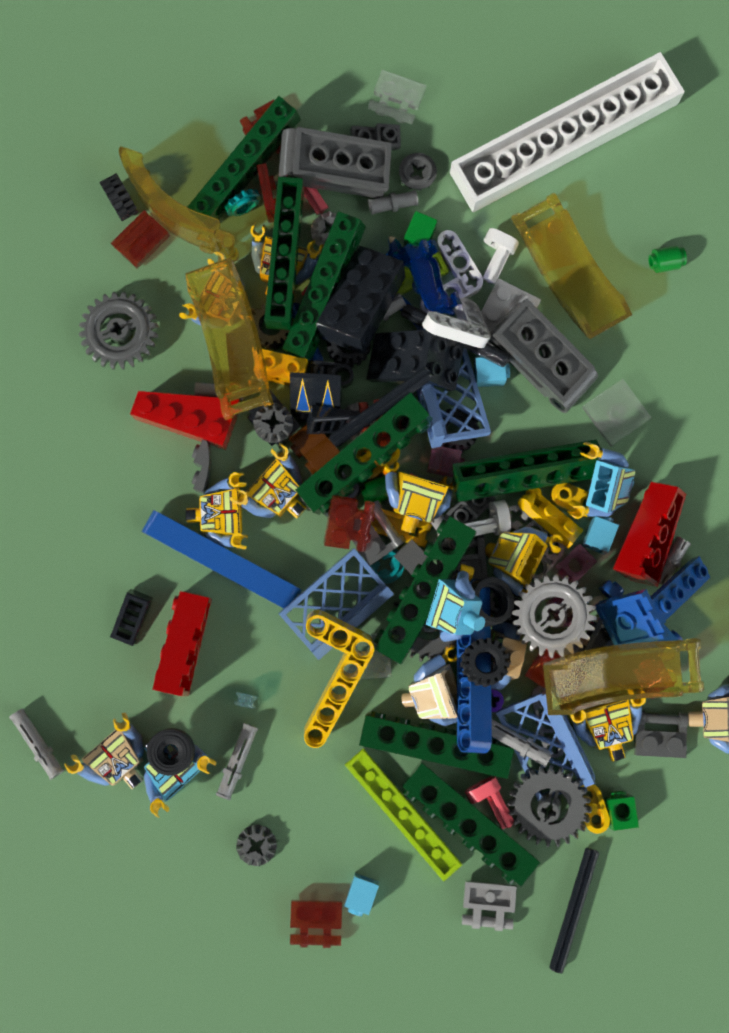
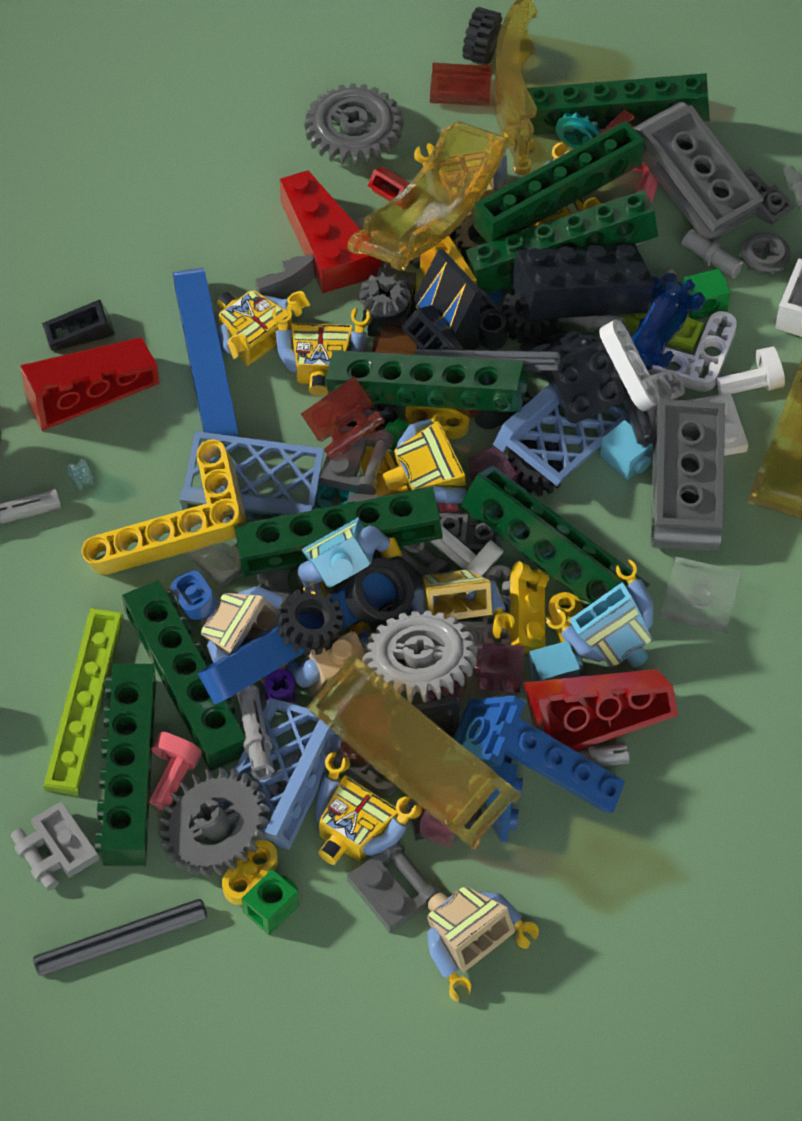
camera: 50 degrees right, 25 degrees down
(182, 343) = (384, 176): none -> red piece
(390, 702) = (194, 595): none -> blue plate

